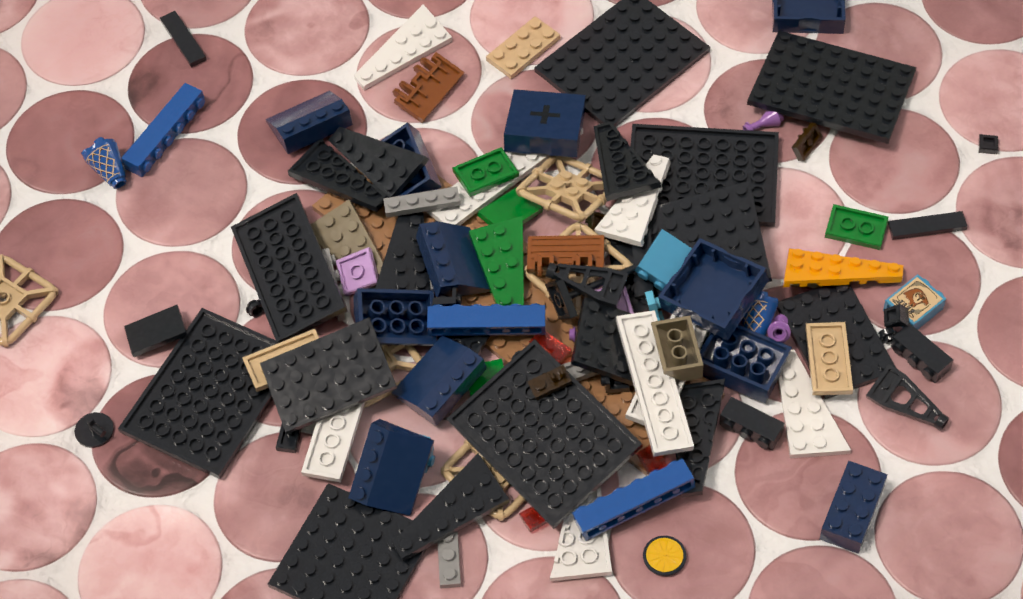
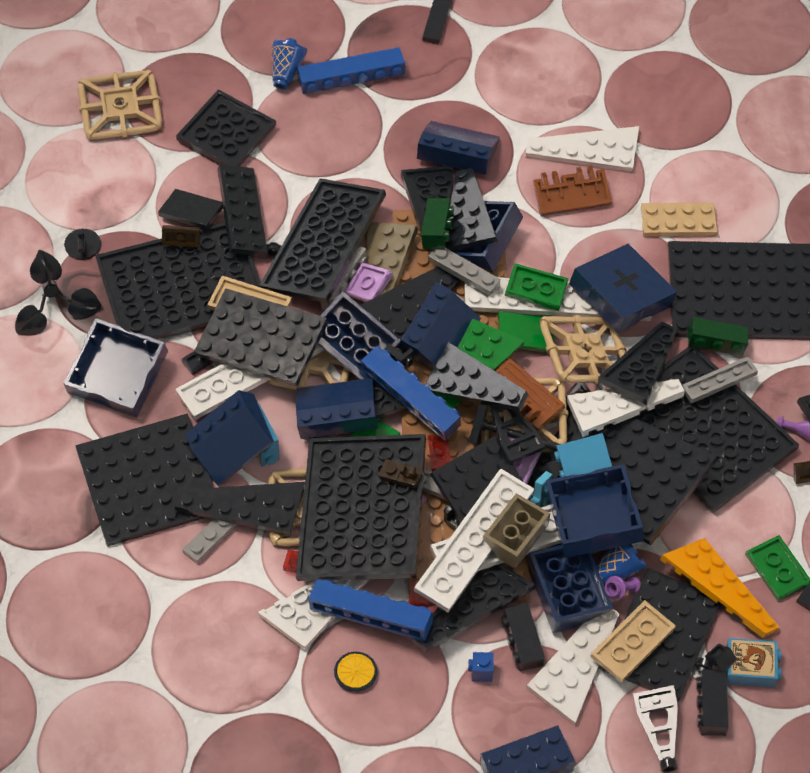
camera: 40 degrees right, 0 degrees up
(101, 470) = (45, 271): none -> black plant
(114, 250) = (226, 129): none -> black plate
(174, 356) = (180, 236): none -> dark brown plate
(198, 298) = (242, 210): none -> black plate
(236, 496) = (116, 367): none -> tile
(368, 183) = (436, 223): none -> dark green brick
(517, 275) = (467, 379): none -> wing
(645, 104) = (717, 336): none -> dark green brick
(681, 131) = (719, 379): none -> light grey plate
(749, 469) = (481, 666): none -> blue brick

